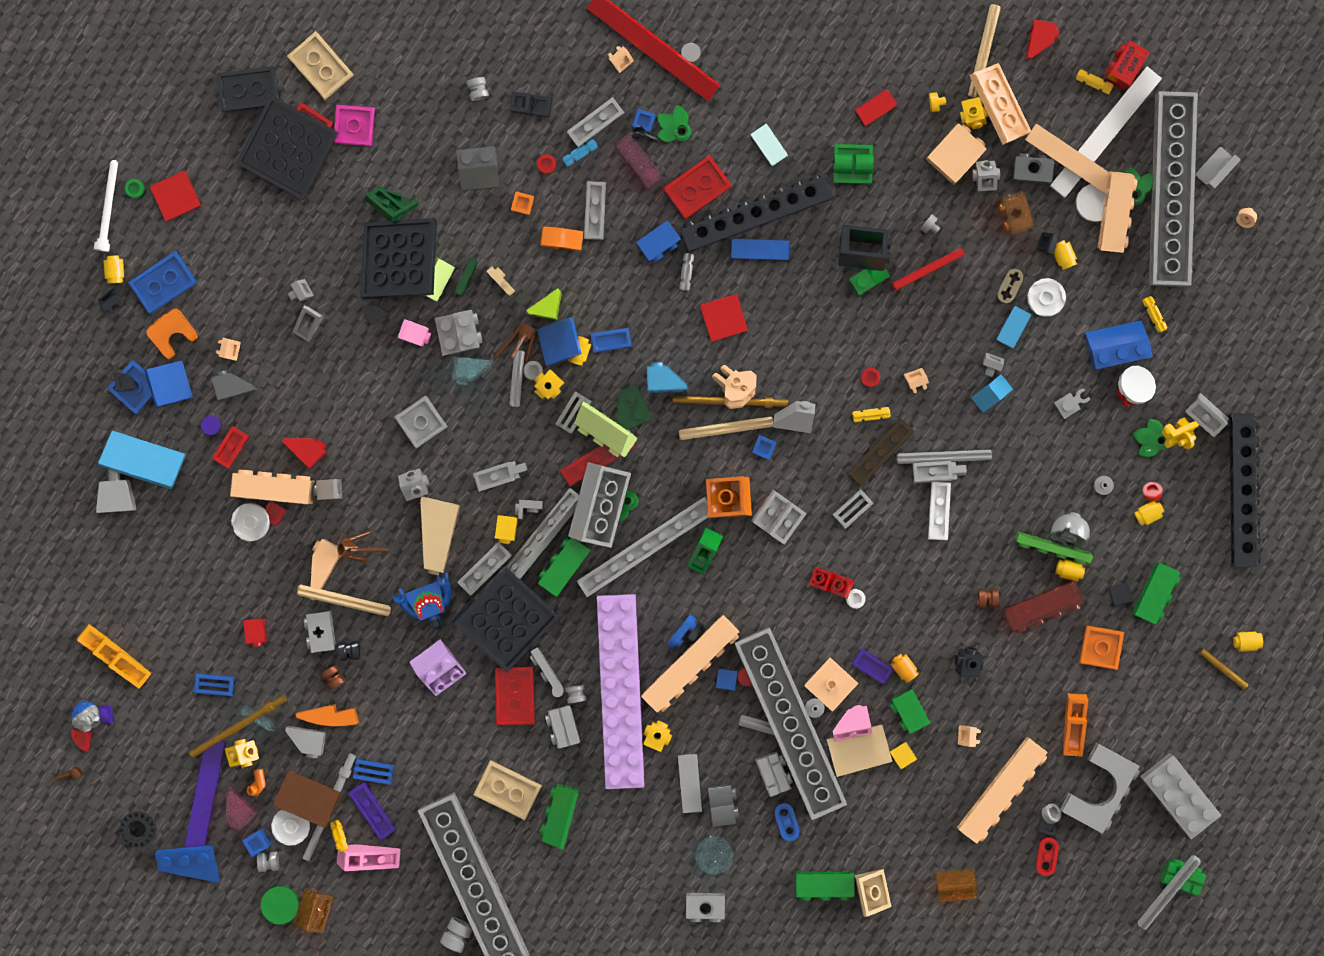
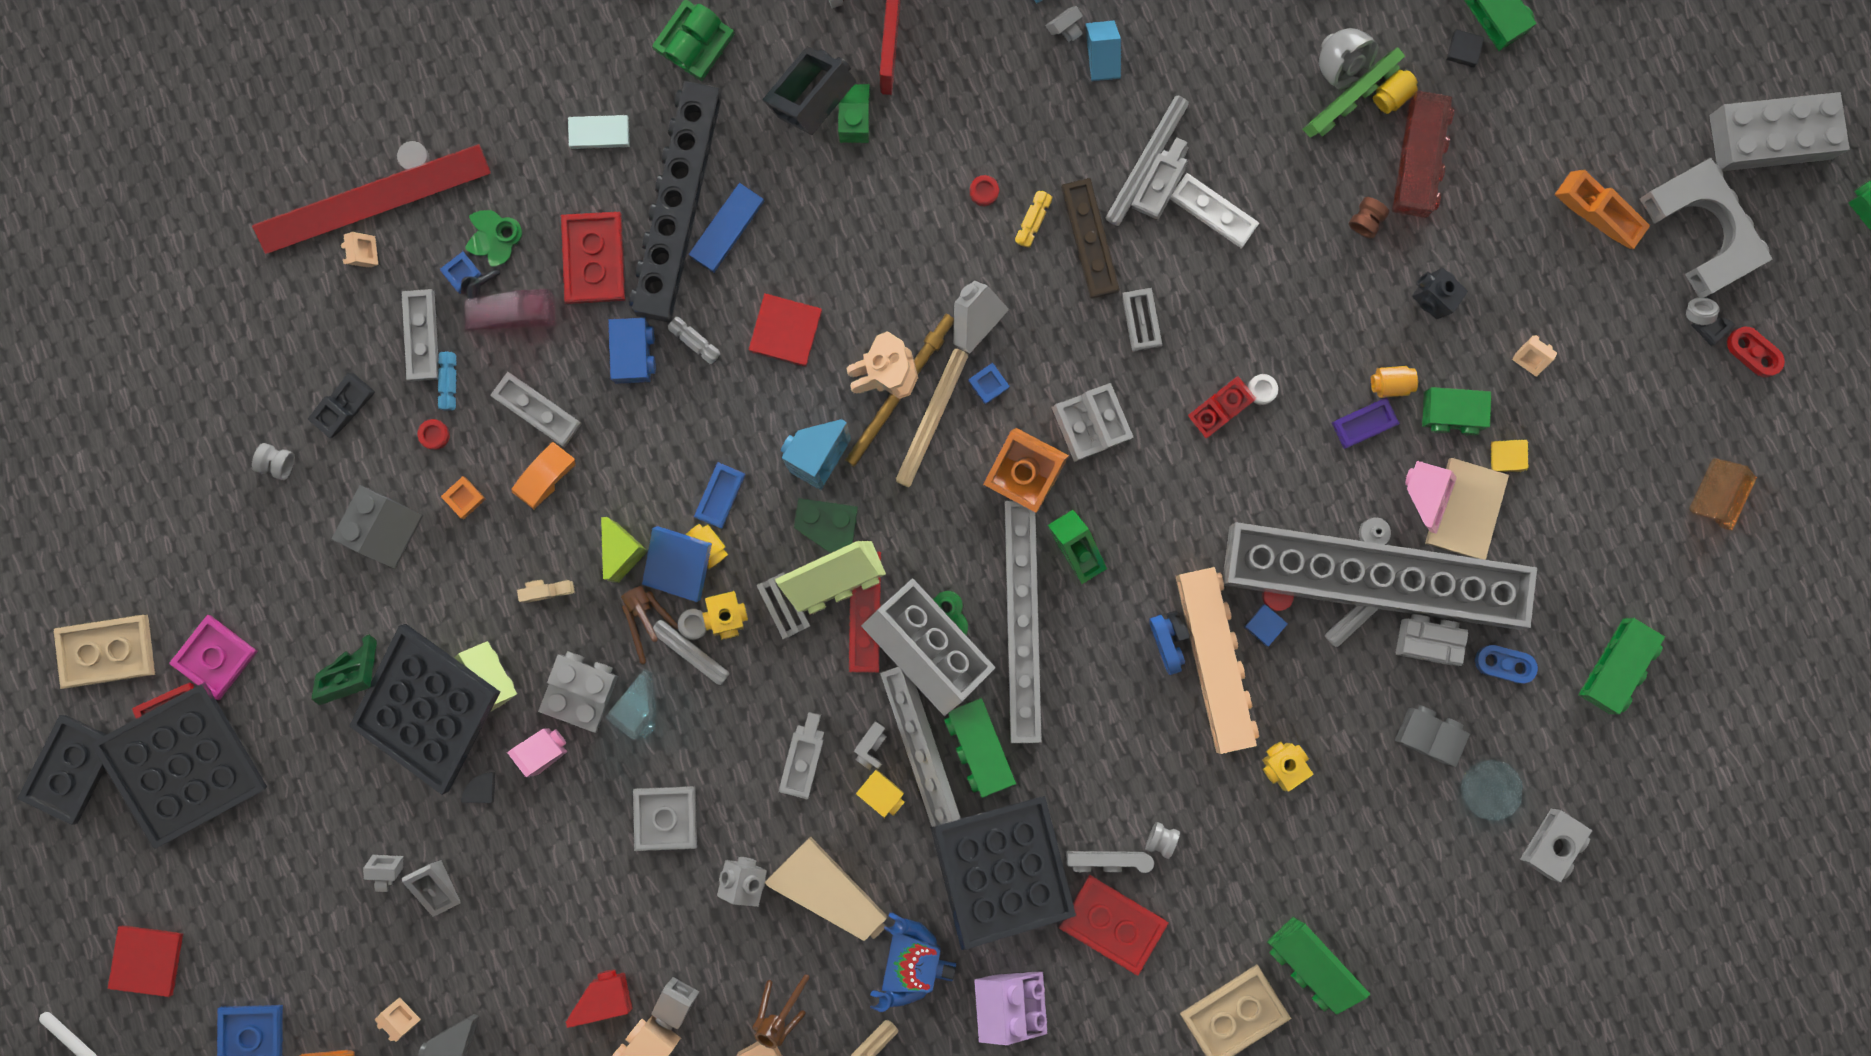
camera: 60 degrees left, 5 degrees down
(134, 188) = (98, 1011): green tile -> none
(466, 277) = (511, 633): dark green tile -> none
(484, 568) = (916, 857): light grey plate -> none
(563, 726) = (1196, 885): light grey brick -> none
(620, 691) = (1197, 777): lavender brick -> none
(689, 783) = (1375, 761): light grey tile -> none
(831, 684) = (1356, 491): light nougat plate -> none
(872, 892) = (1669, 610): tan slope -> none
(916, 378) = (1024, 131): light nougat tile -> none
(1002, 790) = (1634, 355): light nougat brick -> none
(1101, 647) = (1520, 115): orange tile -> none

